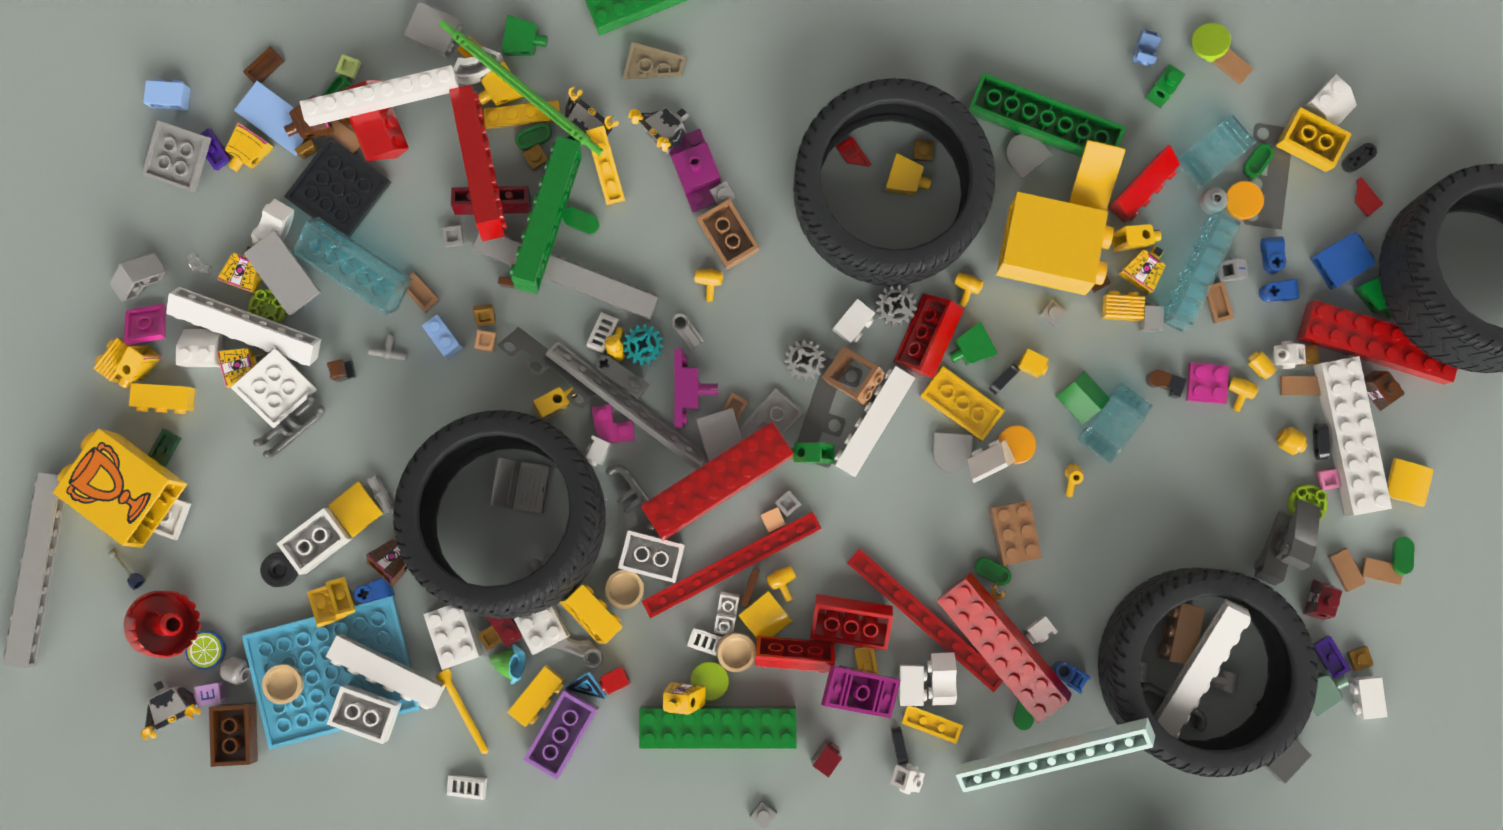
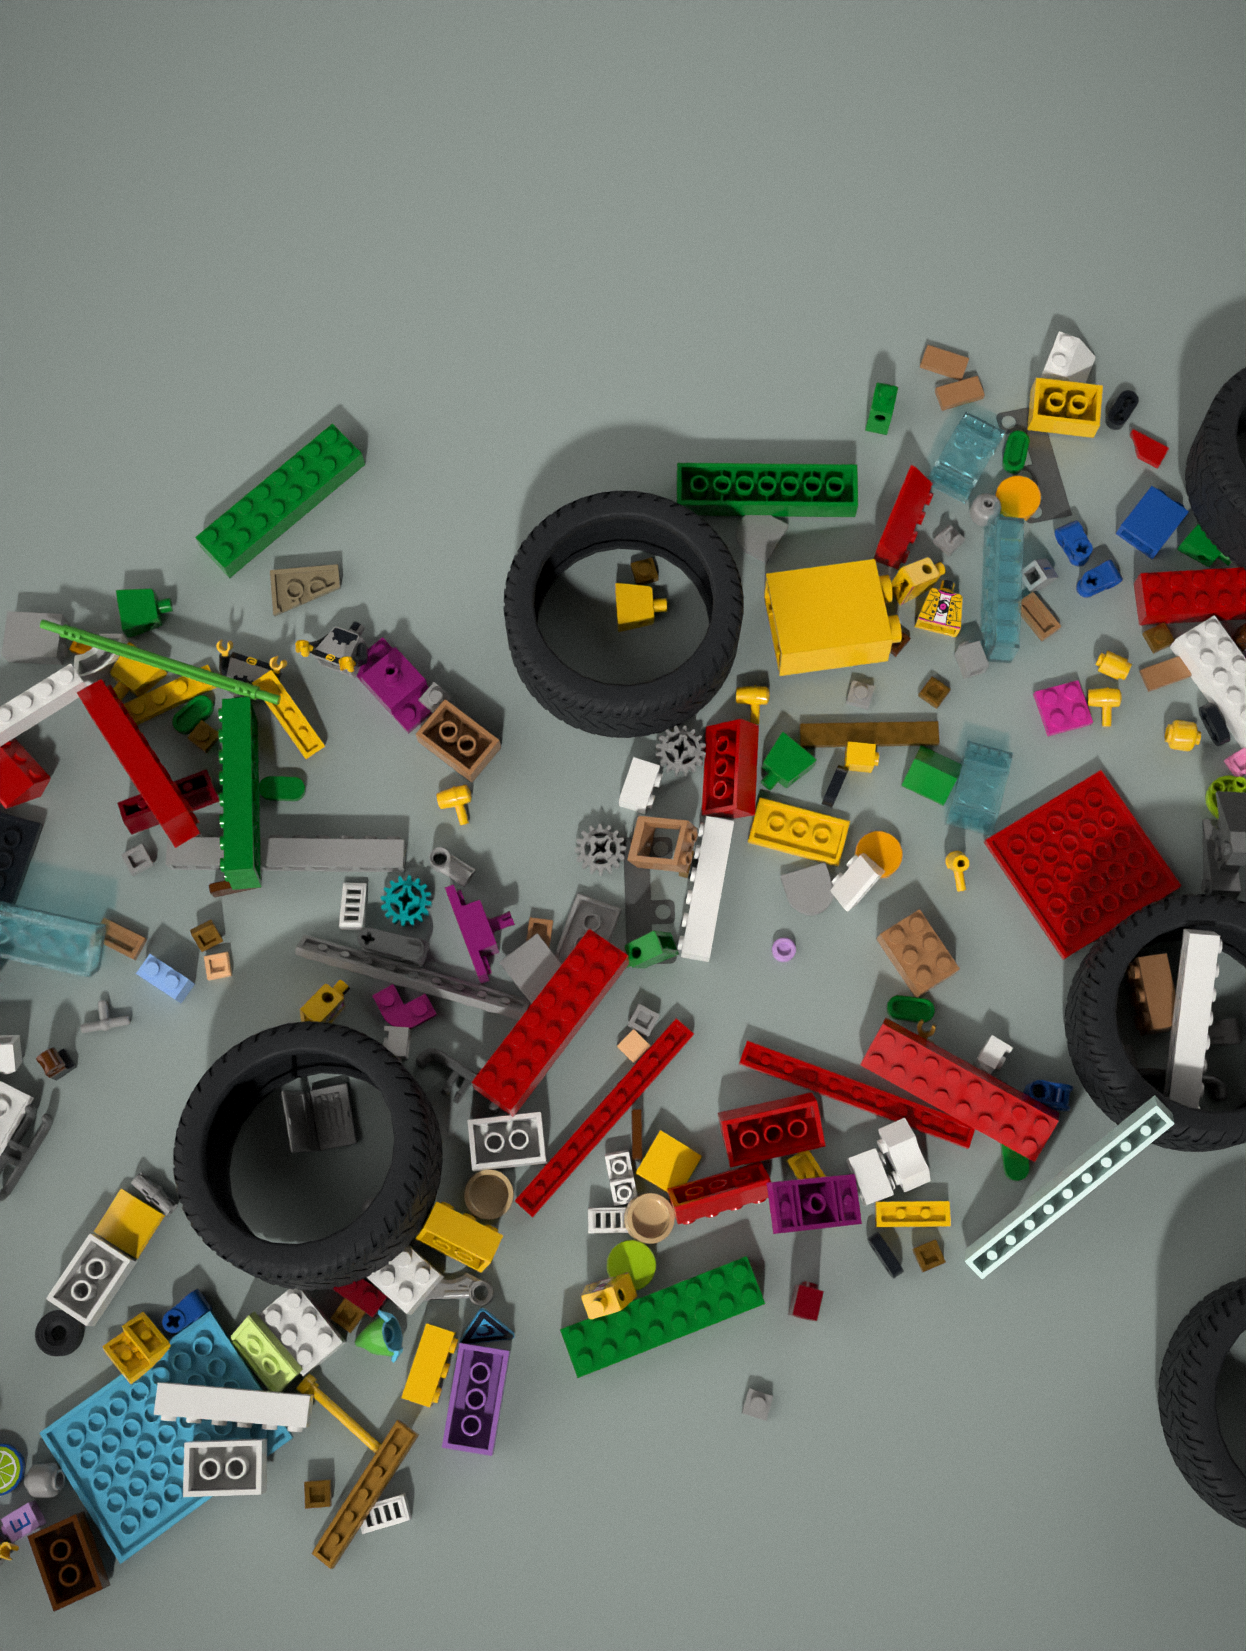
camera: 25 degrees left, 10 degrees down
(282, 684) = (110, 1471): tan piece -> none
(387, 562) = (193, 1268): reddish brown torso -> none
(420, 642) = (265, 1353): none -> yellowish green tile
(424, 755) = (318, 1493): none -> pearl gold plate
(458, 768) = (365, 1494): none -> pearl gold tile
(522, 340) = (262, 948): dark grey piece -> none
(614, 346) = (373, 914): yellow piece -> none
(614, 680) = (516, 1309): red brick -> none
(780, 579) = (668, 1112): yellow piece -> none
(852, 153) = (566, 603): red tile -> none
(907, 778) = (910, 1289): white brick -> none
(914, 489) = (783, 949): none -> lavender tile
(931, 758) = (928, 1255): none -> pearl gold plate
(1047, 347) = (879, 733): none -> pearl gold tile
(1096, 175) = (846, 525): yellow tile -> none
(1111, 333) = (934, 692): none -> pearl gold tile
(1123, 307) = (934, 658): yellow brick -> none
(1146, 47) = (844, 376): medium blue brick -> none
(1166, 381) = (1017, 722): leg -> none
(1170, 511) = (1081, 864): none -> red plate
(1174, 214) = (949, 540): none -> light grey tile
(1210, 41) = (911, 346): lime tile -> none
(1233, 95) = (959, 393): none -> medium nougat tile
(1289, 354) = (1138, 642): white brick -> none

